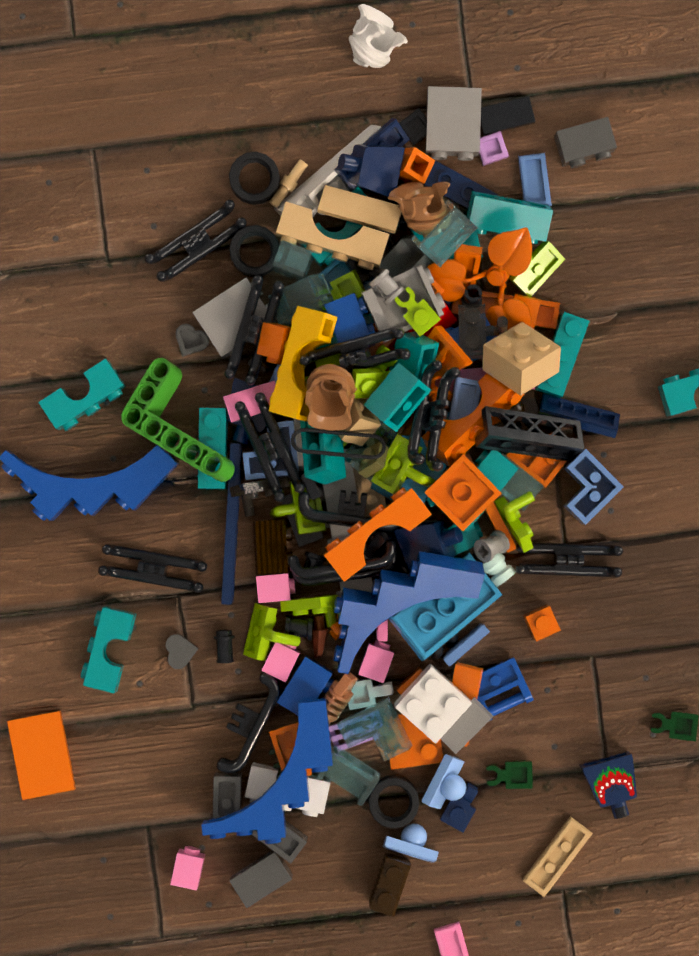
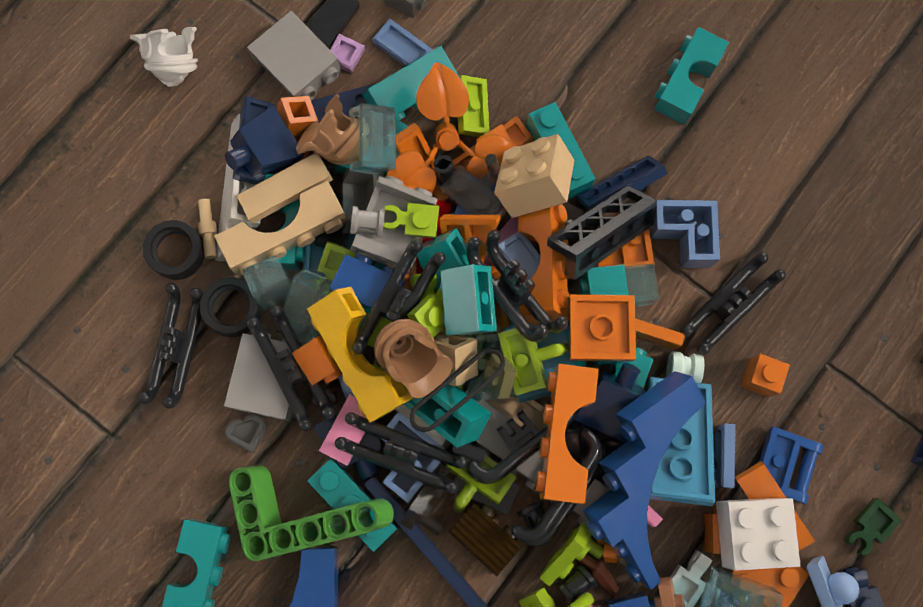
camera: 55 degrees left, 10 degrees down
(275, 587) = (523, 571): bright pink brick -> none
(376, 661) = (670, 546): bright pink brick -> none
(415, 126) = (268, 90): black tile -> none
(467, 726) = (805, 521): light grey tile -> none
(494, 544) = (664, 355): light grey bush -> none
(511, 515) = (675, 317): lime plate -> none

